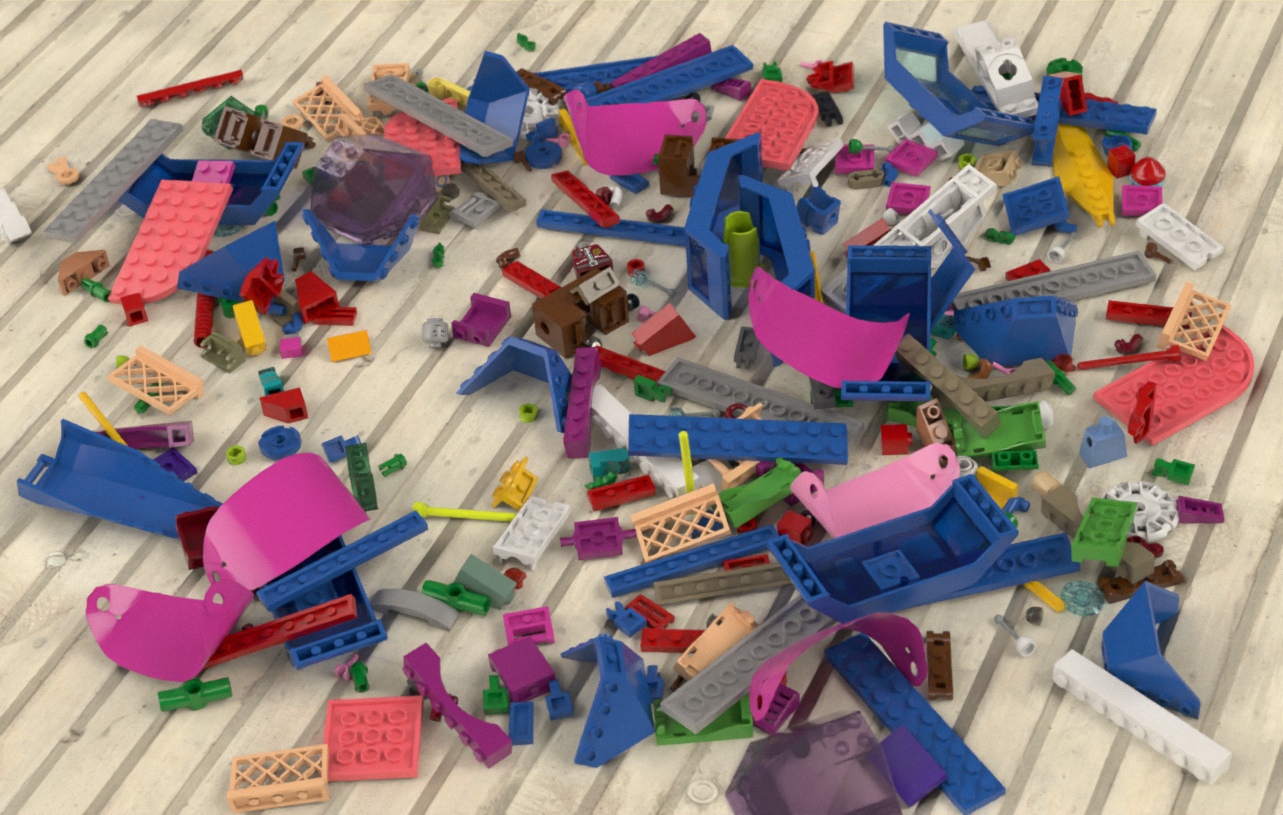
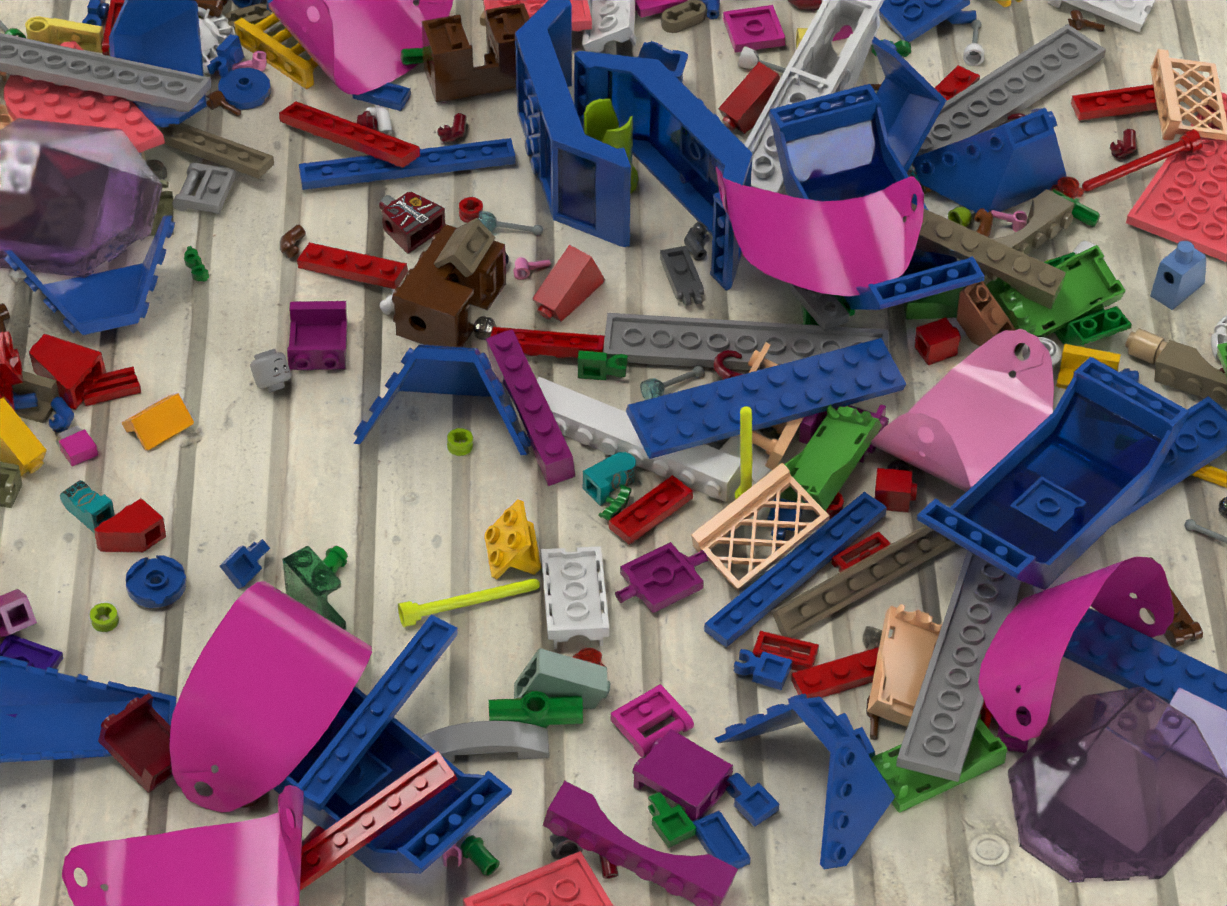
camera: 30 degrees left, 5 degrees up
(1140, 419) = (1210, 223): red plate -> none

